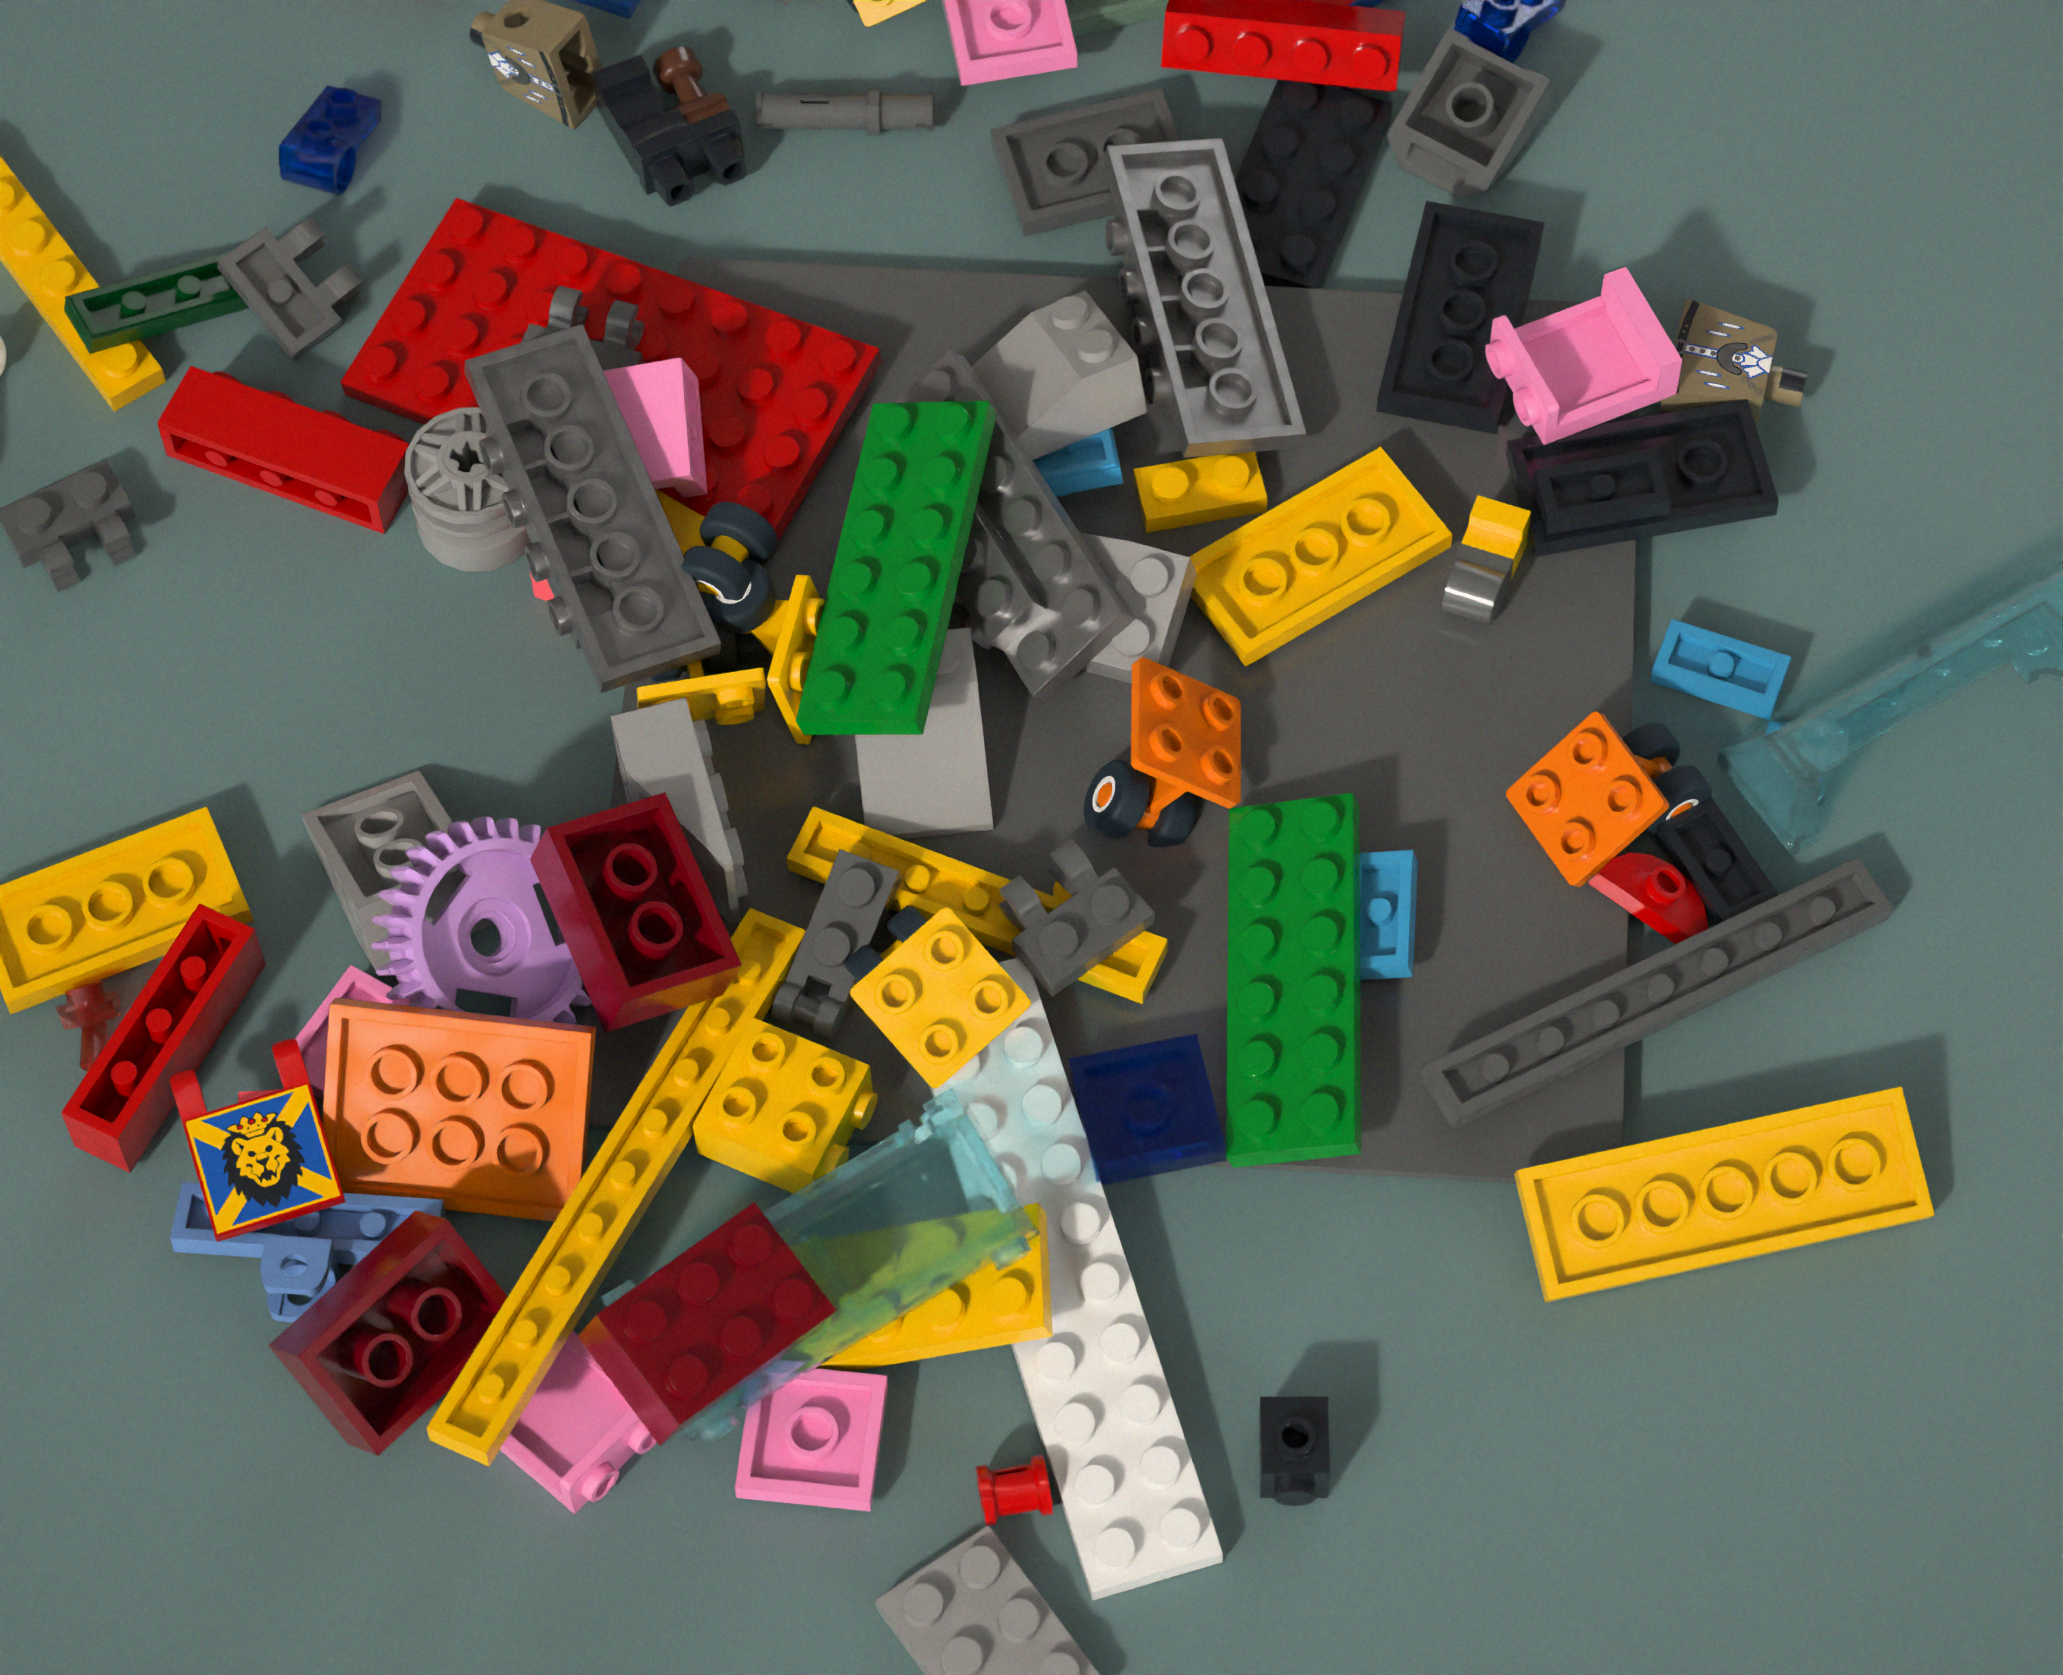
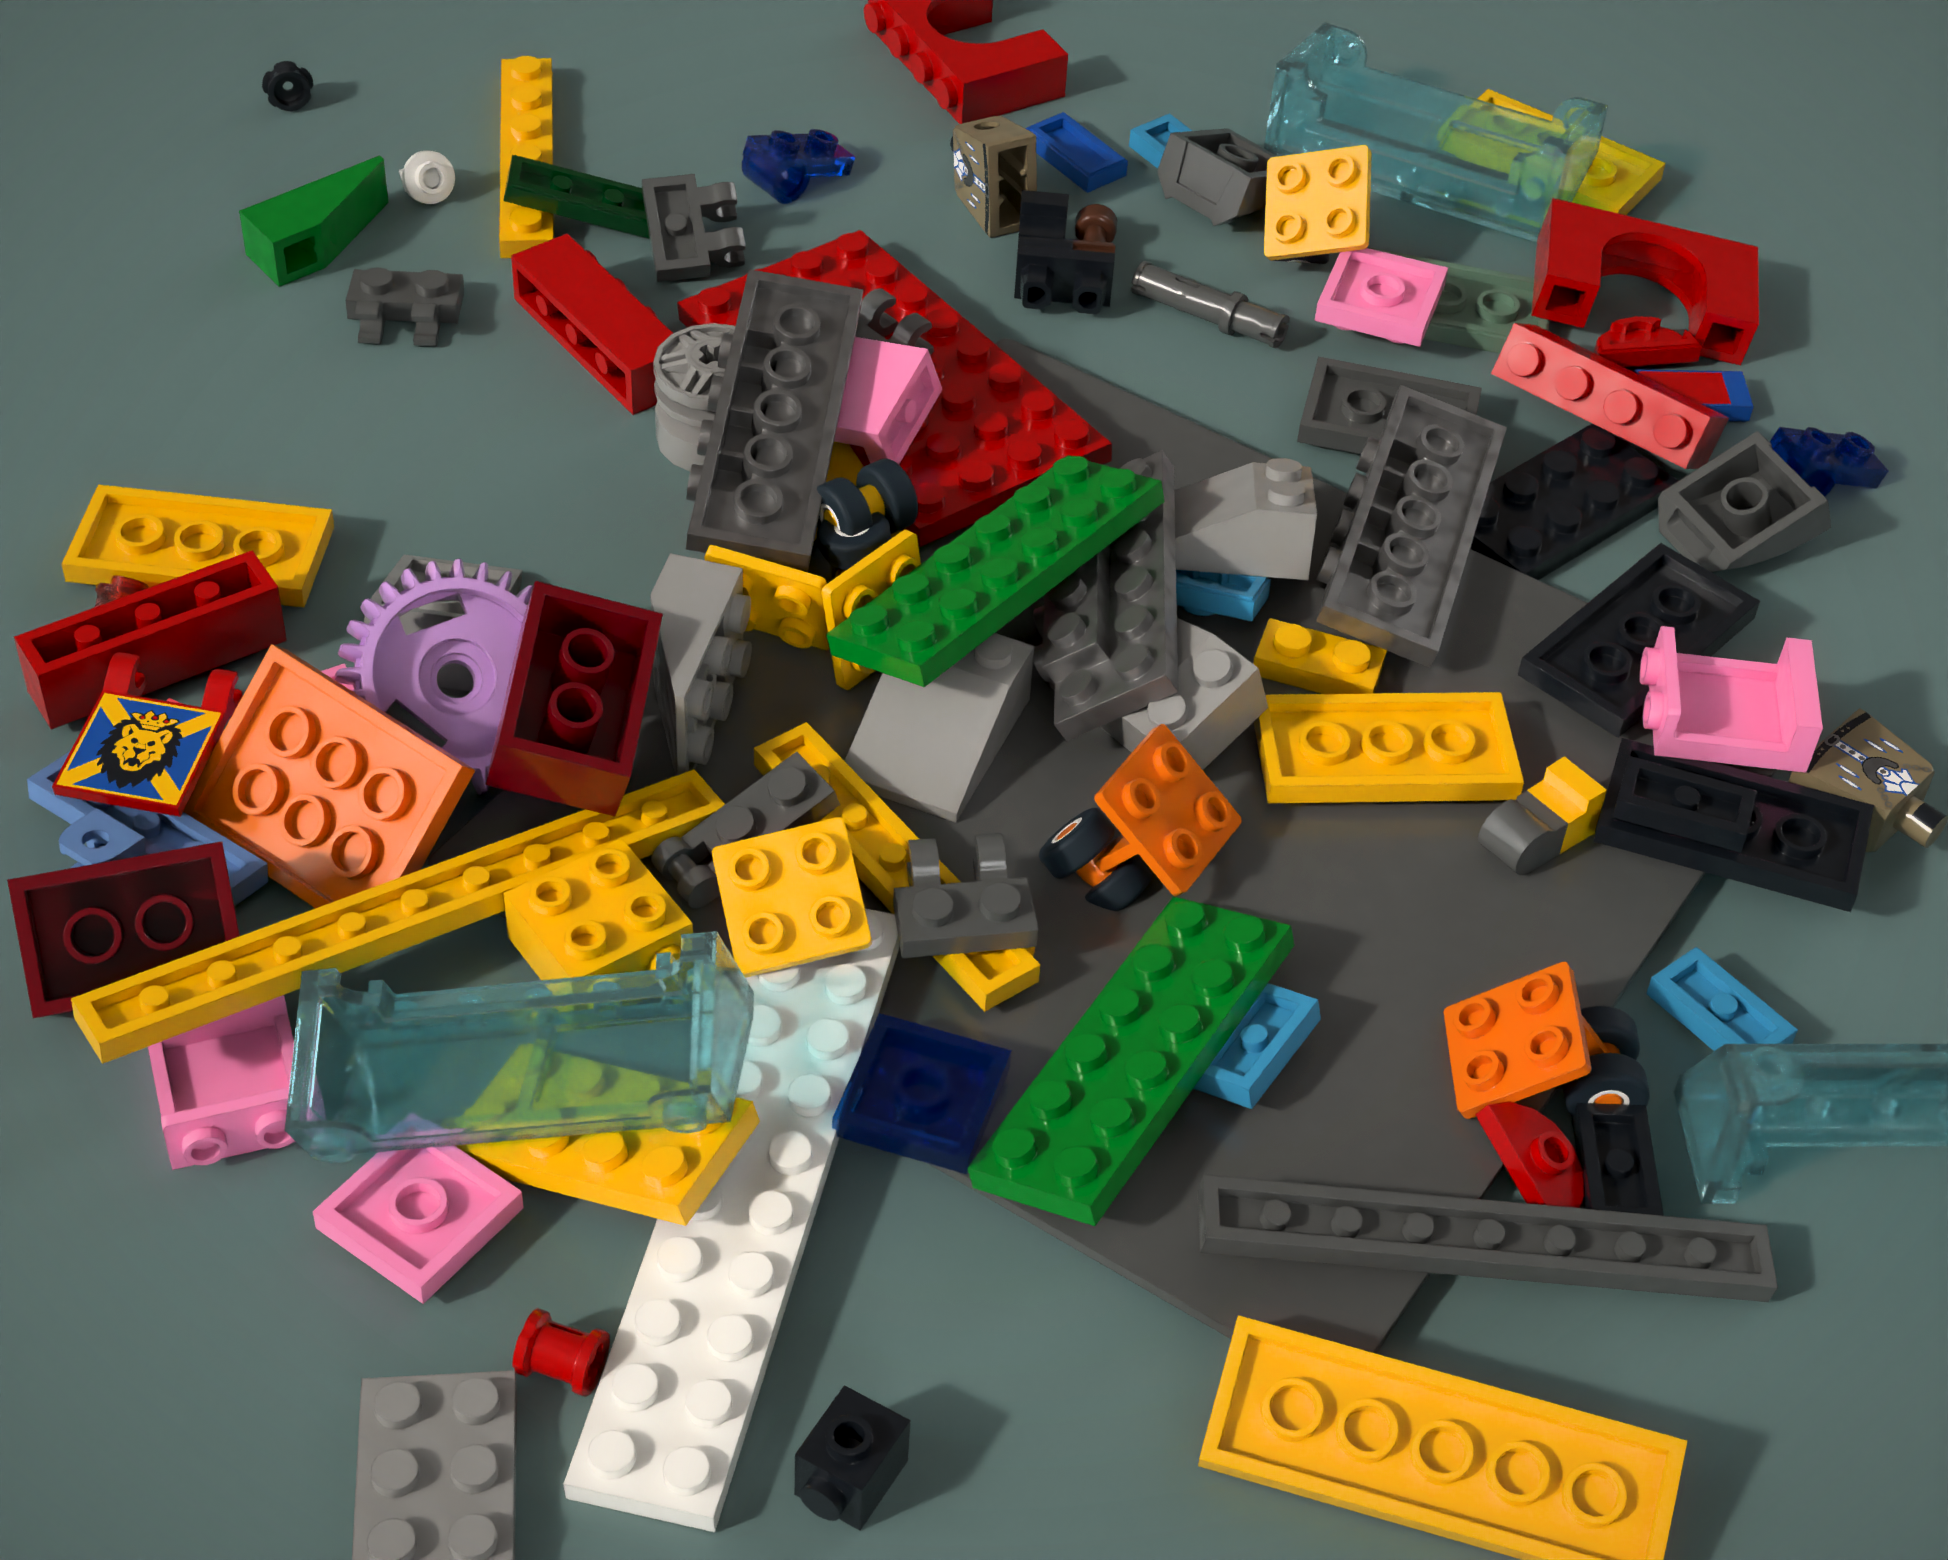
camera: 25 degrees right, 15 degrees down
(706, 1323) = (367, 1032): dark red brick -> none

